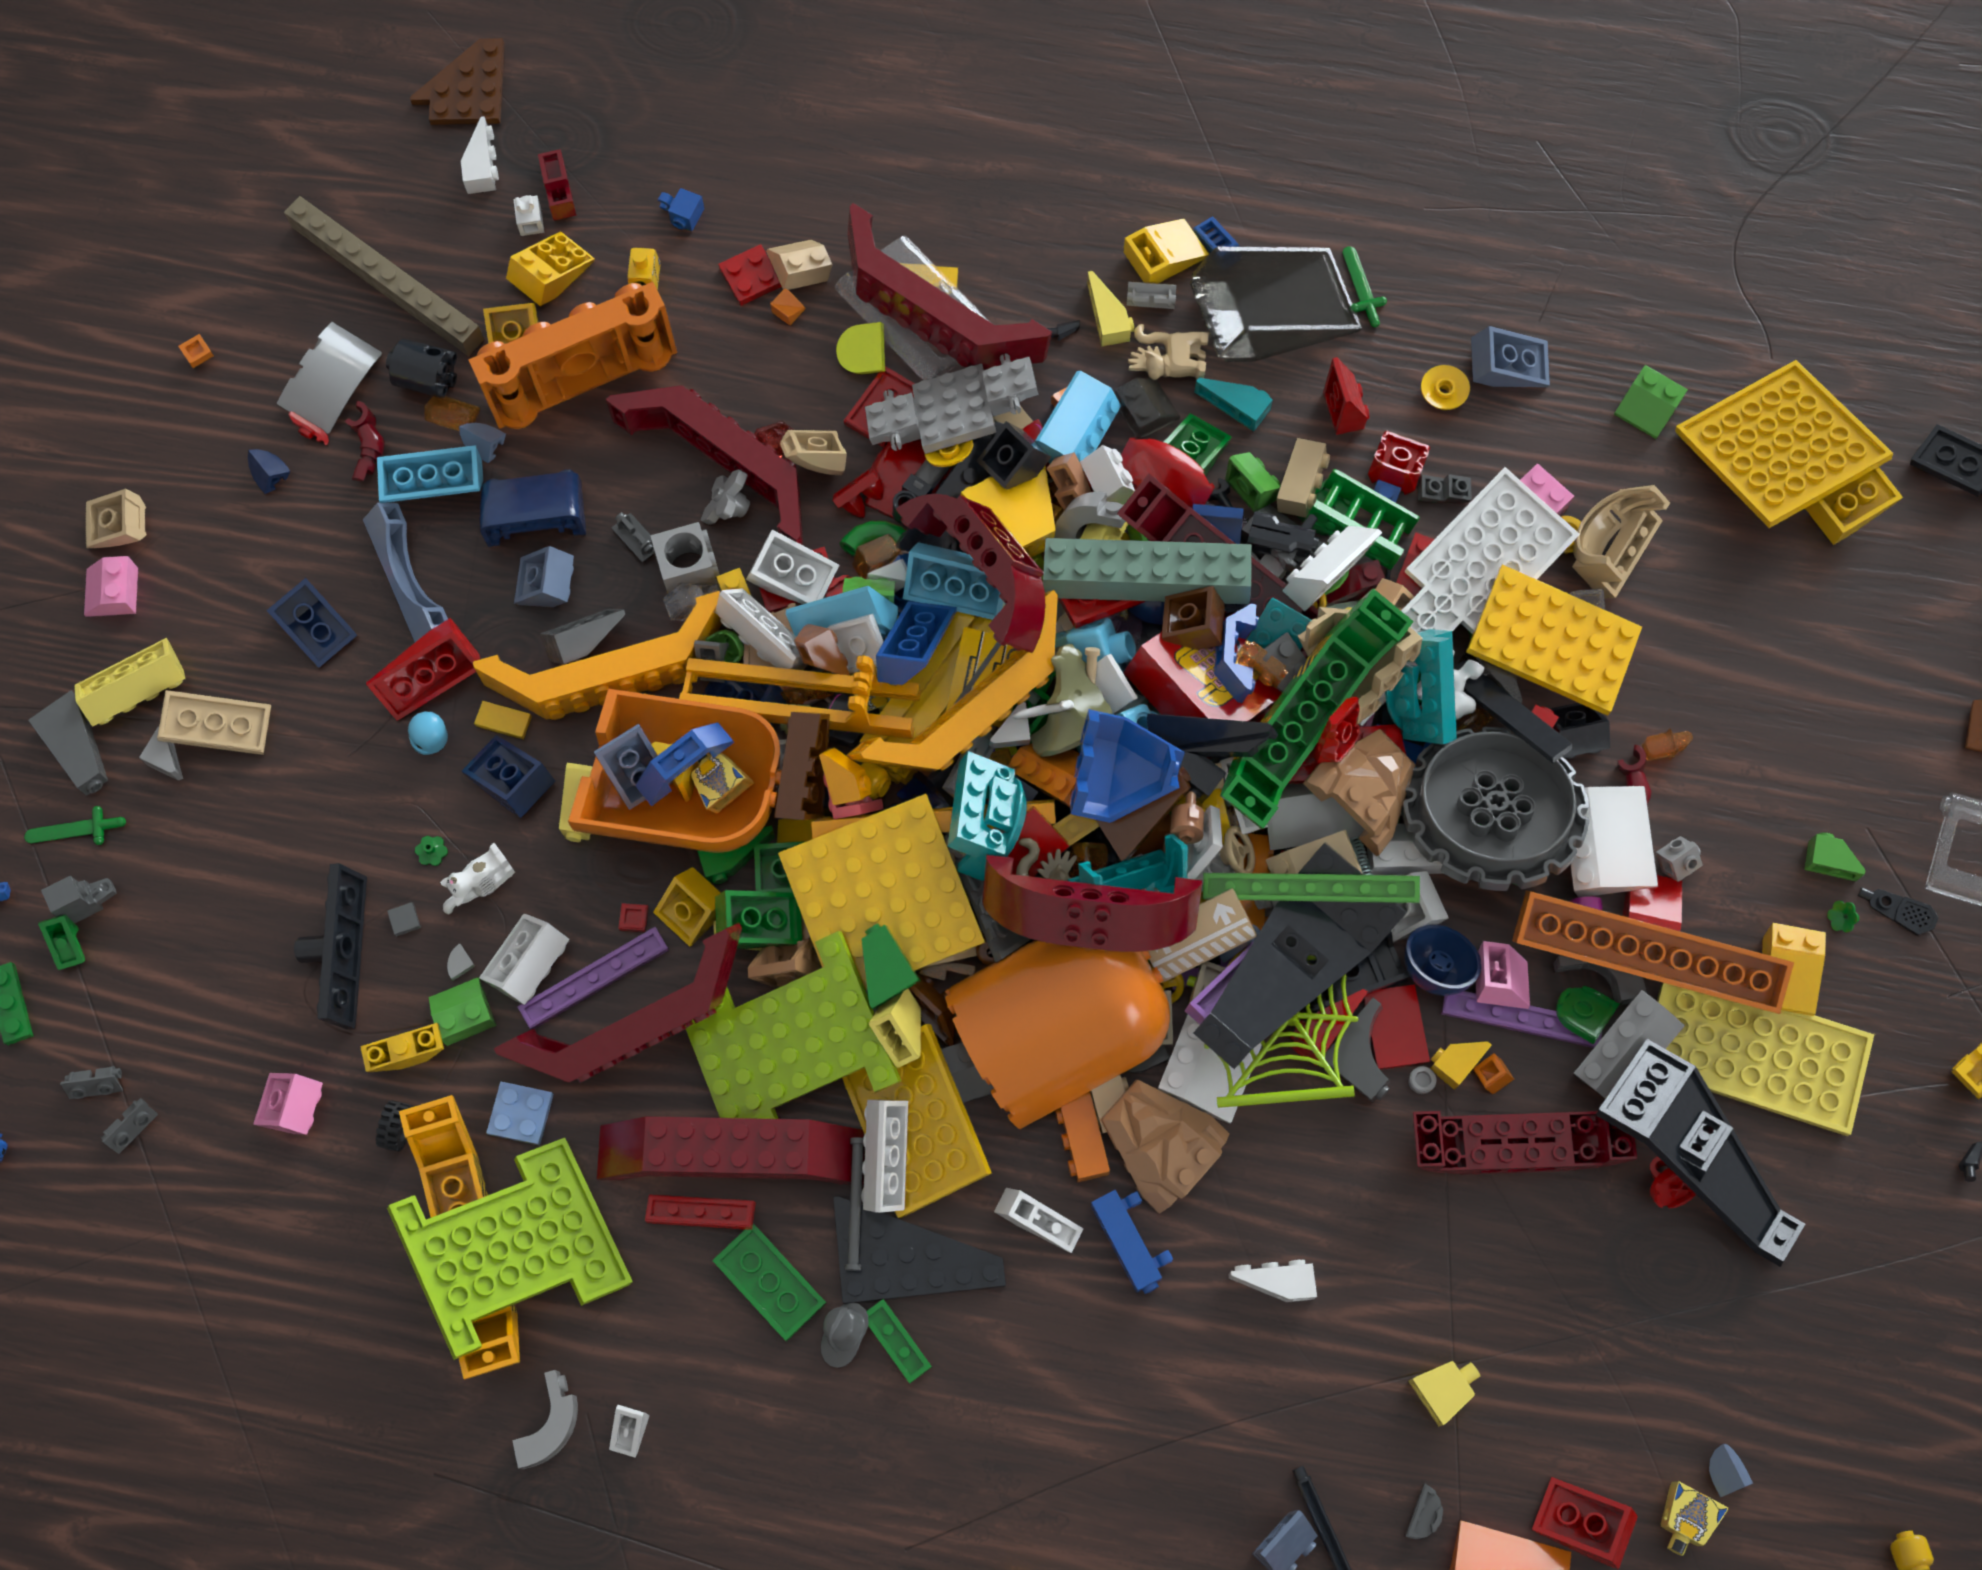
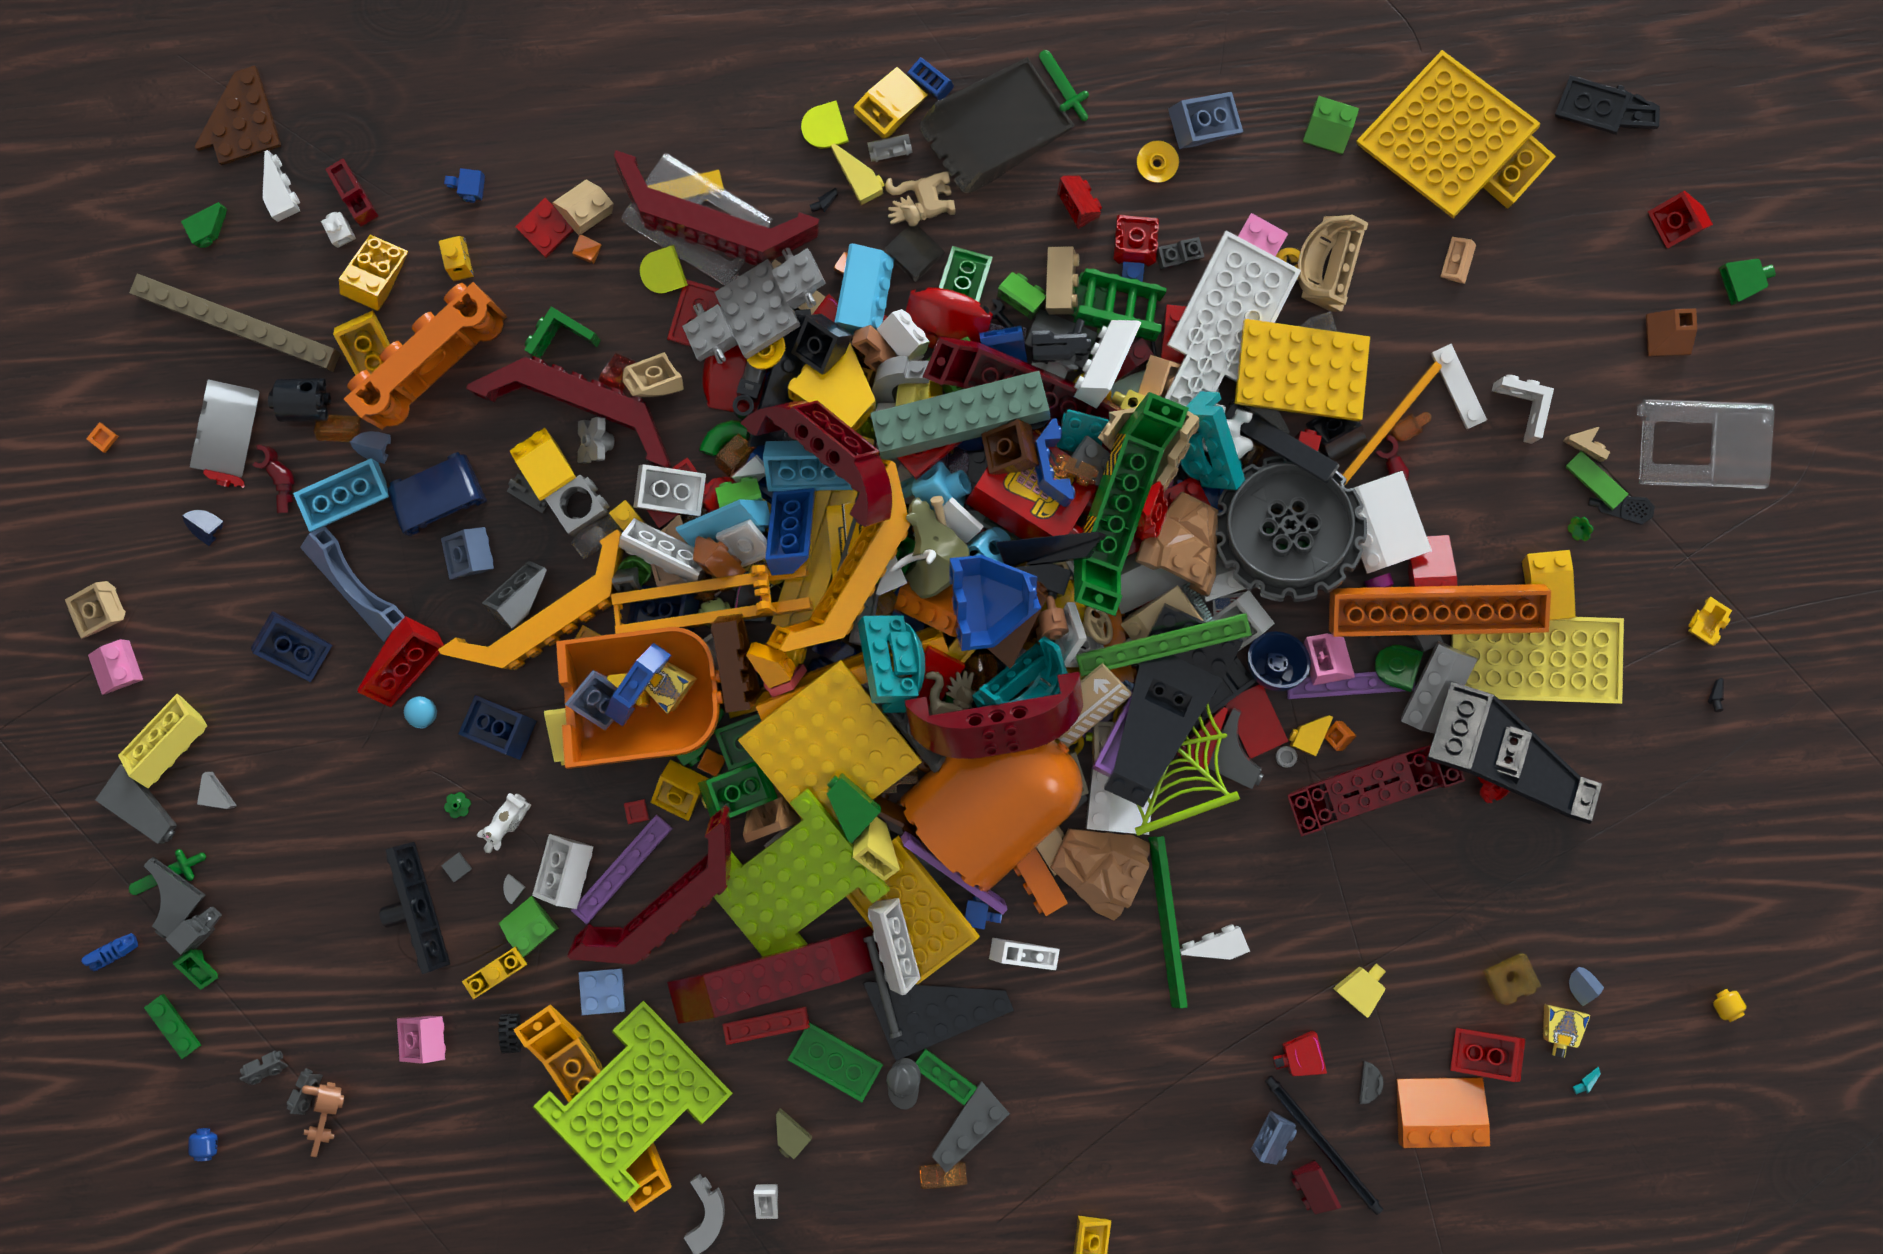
camera: 15 degrees left, 15 degrees up
(73, 854) = (177, 897): none -> dark grey arch
(150, 1143) = (327, 1102): none -> nougat piece
(214, 722) = (245, 755): tan tile -> none
(391, 173) = (205, 225): none -> green slope
(503, 720) = (475, 681): yellow tile -> none
(661, 502) = (542, 463): none -> yellow slope
(684, 1355) = (790, 1135): none -> olive slope
(723, 366) = (547, 329): none -> green bracket
(739, 882) = (711, 762): none -> orange slope
(849, 495) = (693, 405): red tile -> none
(856, 1465) = (935, 1177): none -> clear orange slope
(912, 1411) = (973, 1124): none -> dark grey wing
(983, 1089) = (923, 852): none -> medium lavender tile
(998, 1152) = (978, 914): none -> blue brick
(1085, 254) = (824, 126): none -> neon yellow tile
(1126, 1241) = (1096, 951): blue brick -> none
(1225, 1234) = (1168, 922): none -> green tile
(1237, 400) = (991, 225): teal slope -> none
(1347, 1451) = (1302, 1056): none -> red torso
(1645, 731) = (1391, 421): none -> light orange tile
(1654, 1439) = (1523, 983): none -> clear yellow brick
(1679, 858) = (1443, 519): light grey brick -> none
(1732, 719) = (1459, 387): none -> white plate
(1764, 583) = (1458, 259): none -> light nougat slope
(1814, 742) = (1530, 391): none -> white bracket
(1832, 858) = (1561, 481): bright green slope -> none
(1867, 820) = (1583, 442): none -> tan slope
(1877, 869) = (1596, 480): none -> bright green tile

